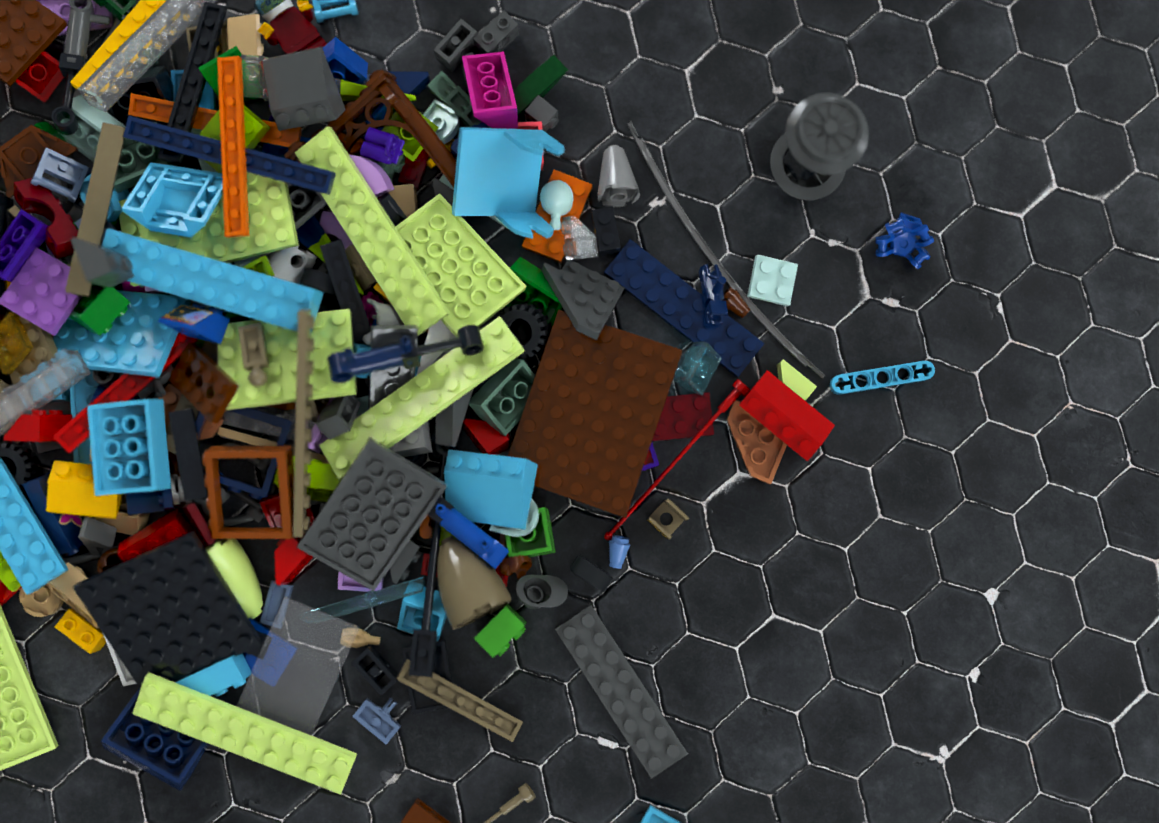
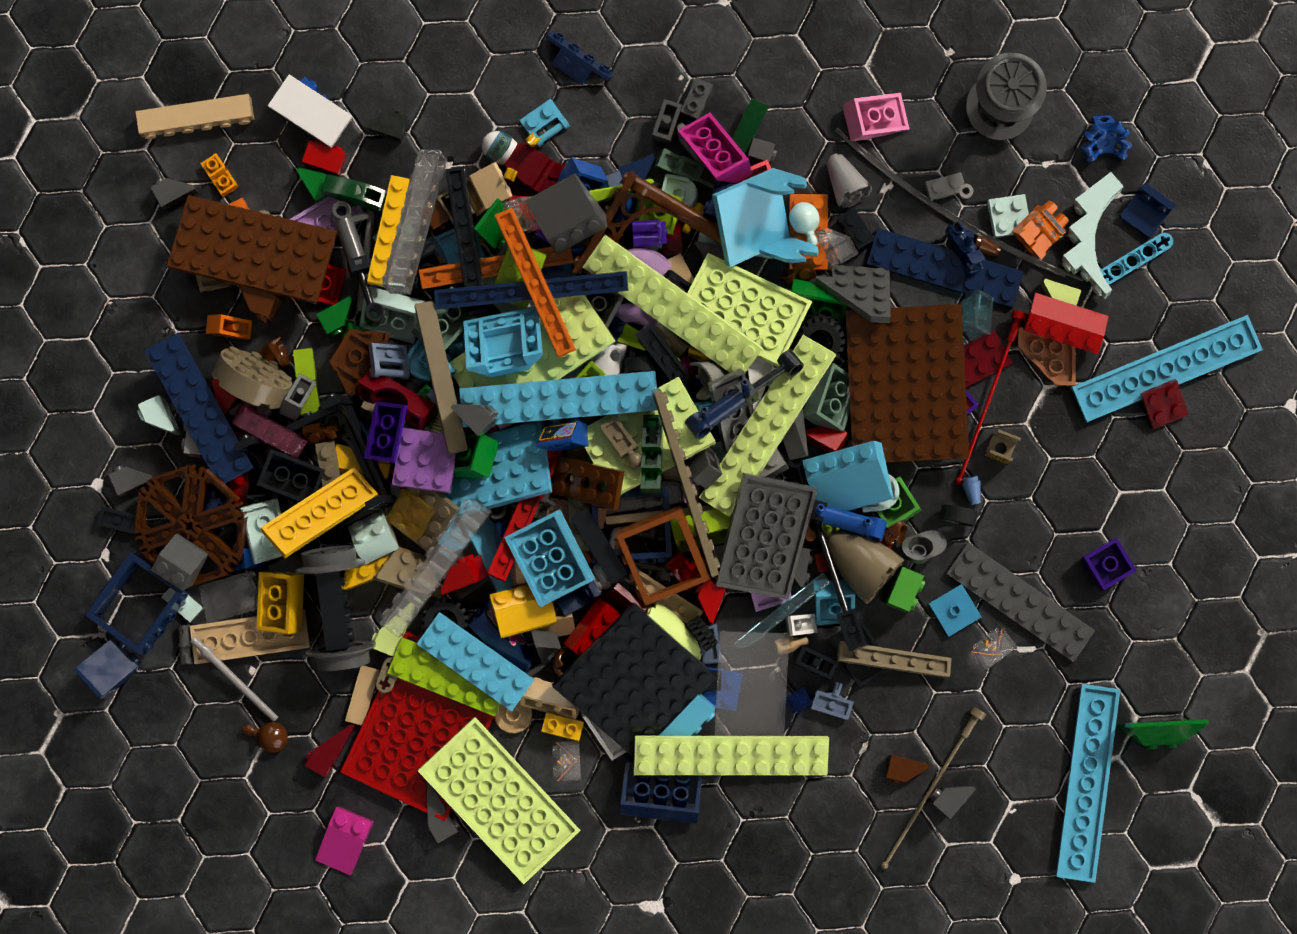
camera: 20 degrees left, 0 degrees up
(35, 110) = (336, 317): none -> green slope
(73, 669) = (568, 761): none -> clear brick
(179, 52) = (439, 220): none -> reddish brown brick
(256, 549) = (679, 606): none -> tan plate
(266, 591) = (702, 633): none -> black tyre
(276, 382) = (651, 454): none -> dark green slope
(343, 702) = (799, 700): none -> clear blue brick
(378, 622) = (801, 624): none -> white slope
(532, 251) = (800, 271): none -> reddish brown plate
(548, 671) = (954, 610): none -> dark azure plate
(571, 730) = (993, 649): none -> clear brick
(674, 123) = (875, 116): none -> bright pink slope
(720, 225) = (947, 186): none -> light grey hinge
(730, 689) = (1108, 564): none -> dark purple brick
(799, 306) = (1040, 229): none -> orange hips
(857, 541) = (1164, 404): none -> dark red plate
(862, 304) = (1083, 256): none -> light aqua arch
(875, 505) = (1178, 362): none -> medium azure plate
(920, 330) = (1147, 210): none -> dark blue bracket

